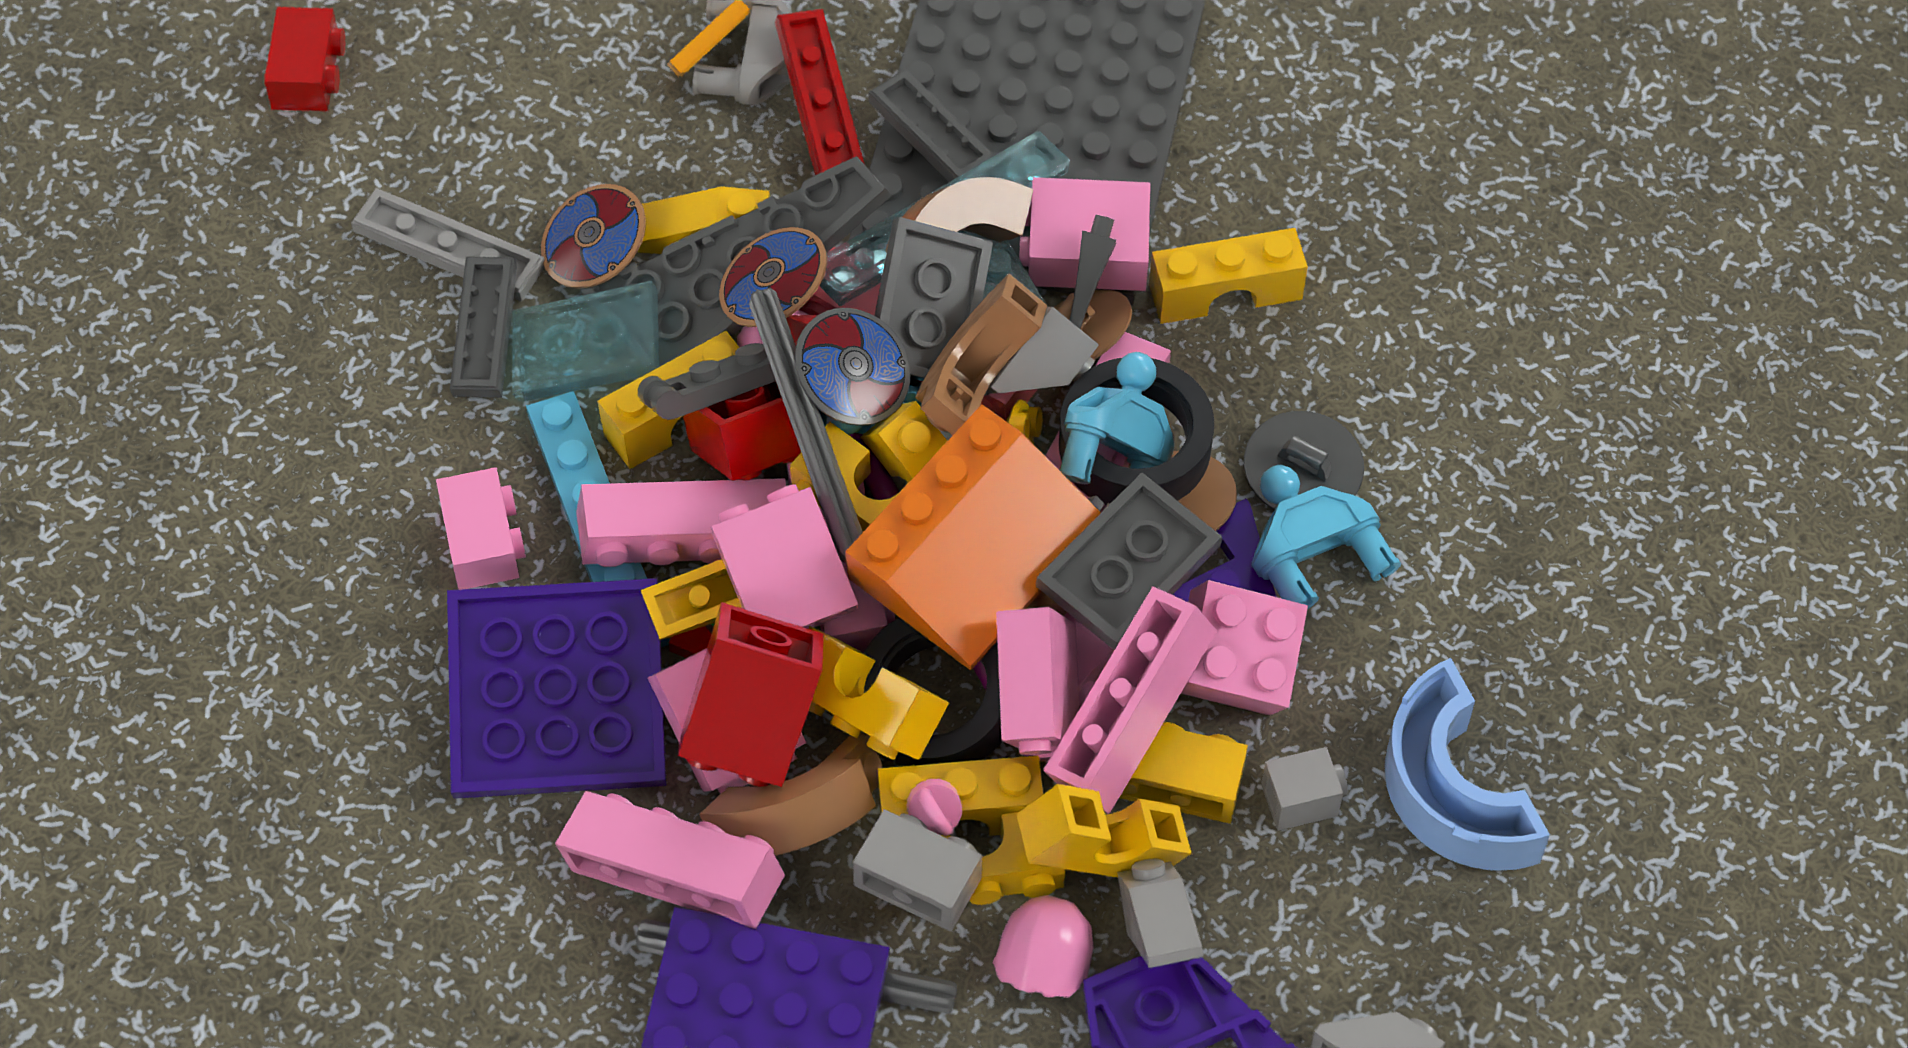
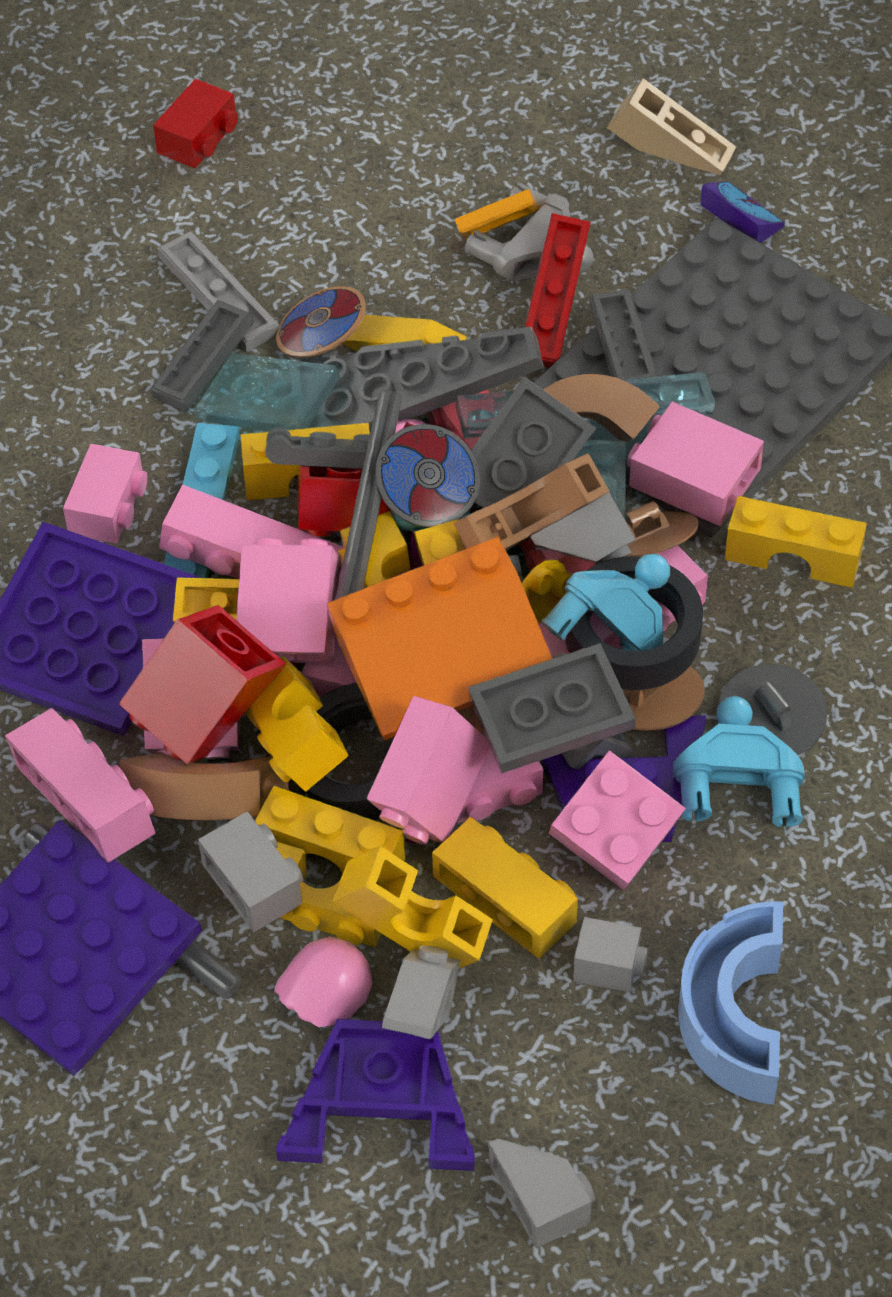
camera: 30 degrees right, 5 degrees down
(785, 260) = (425, 389): shield -> none
(936, 805) = (294, 830): bright pink tile -> none
(1094, 255) = (678, 477): dark grey piece -> none
(1132, 697) = (490, 814): bright pink brick -> none

